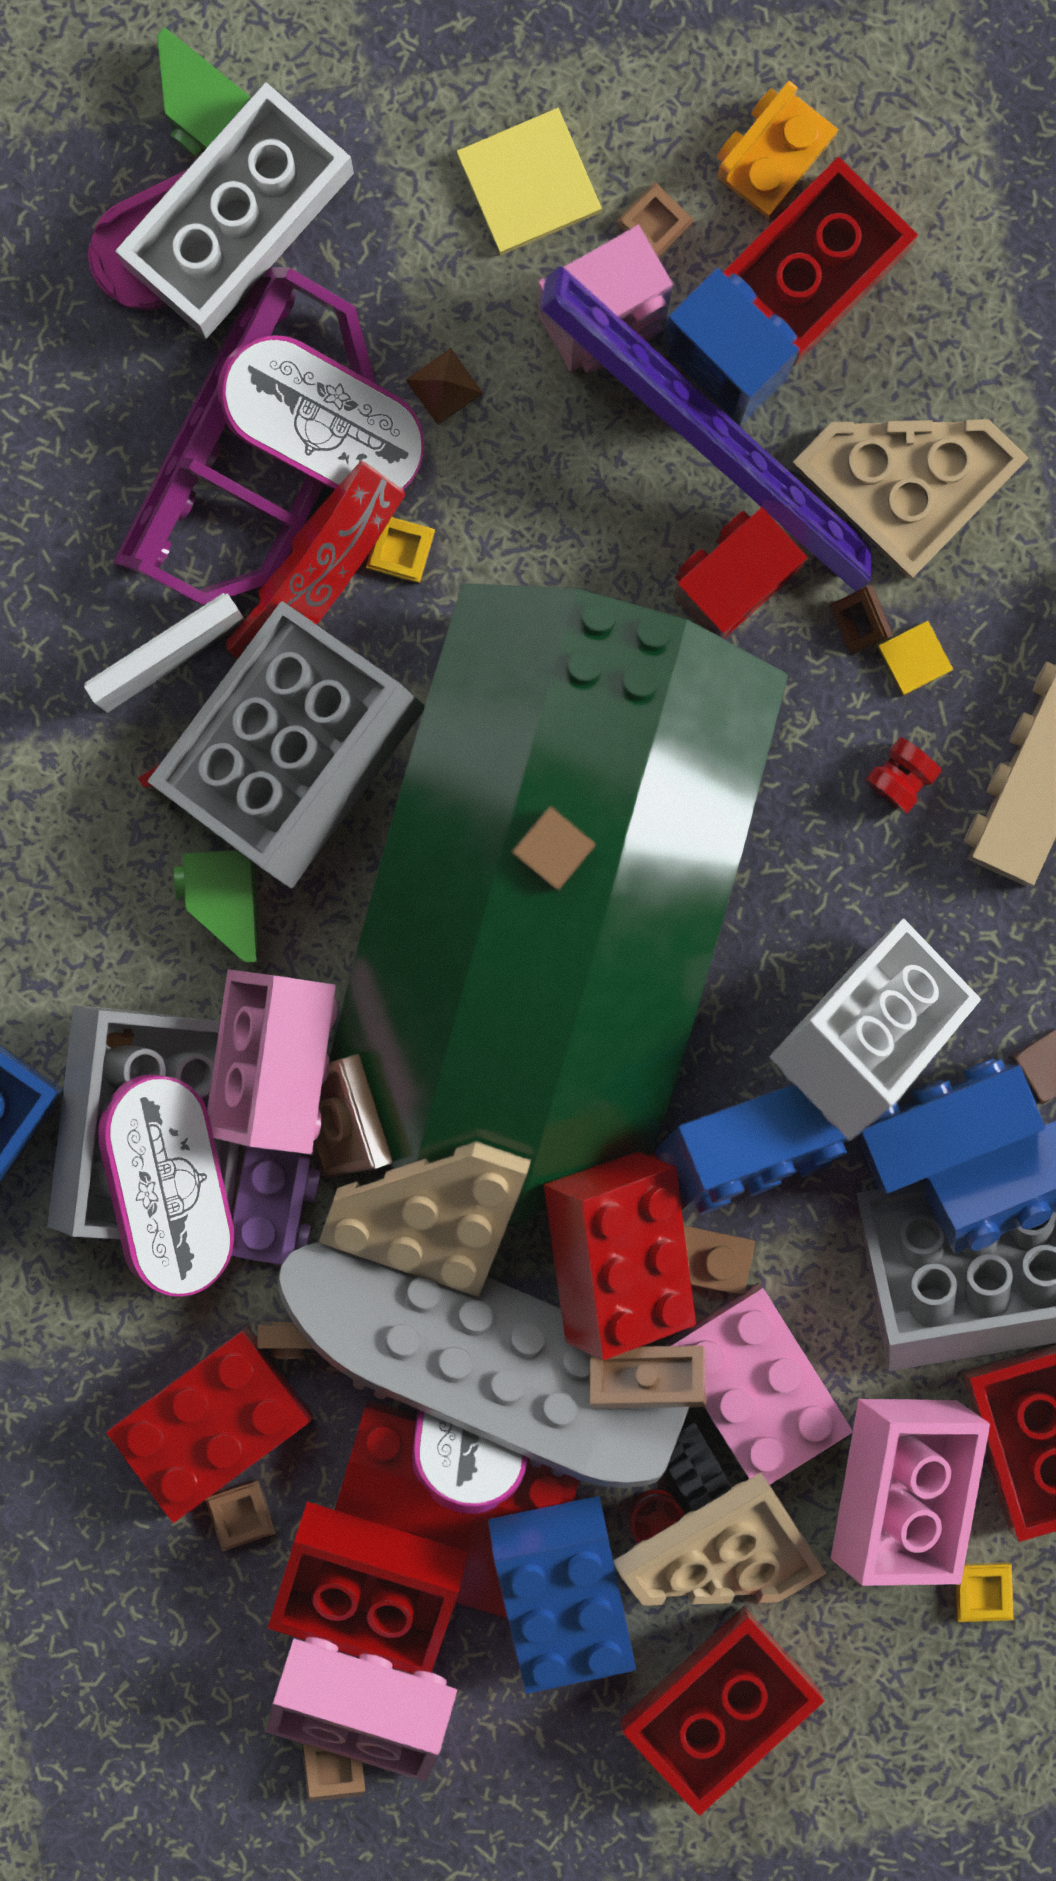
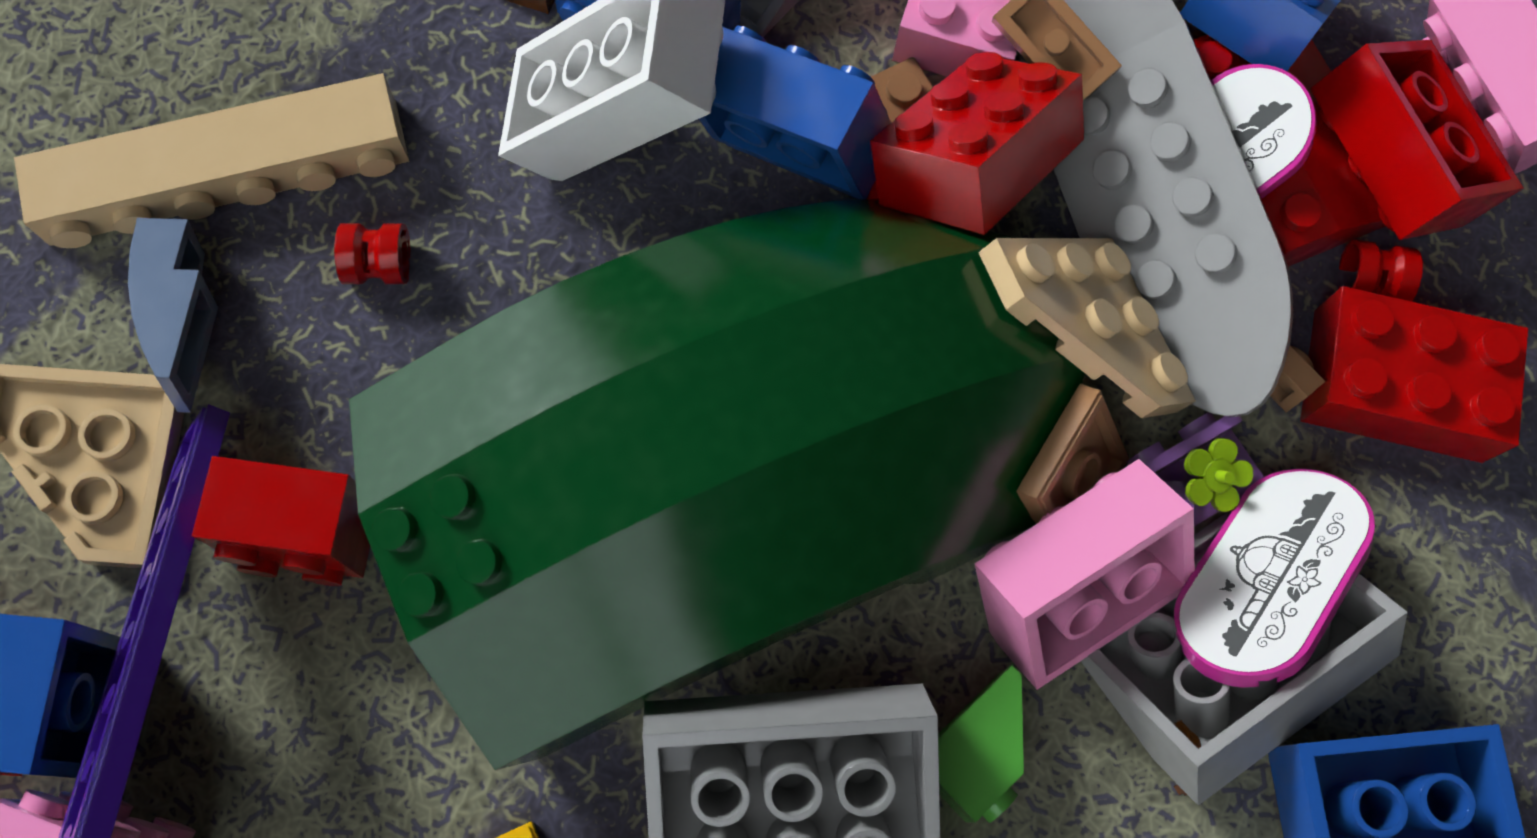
camera: 135 degrees left, 15 degrees down
(240, 1515) = (1449, 289): medium nougat tile -> none
(259, 1214) = (1216, 475): none -> lime plant
(297, 1478) = (1383, 272): none -> red wheel
(554, 848) = (682, 428): medium nougat tile -> none
(865, 600) = (242, 386): reddish brown slope -> none
(915, 658) = (259, 326): yellow tile -> none
(970, 608) = (171, 304): none -> sand blue slope

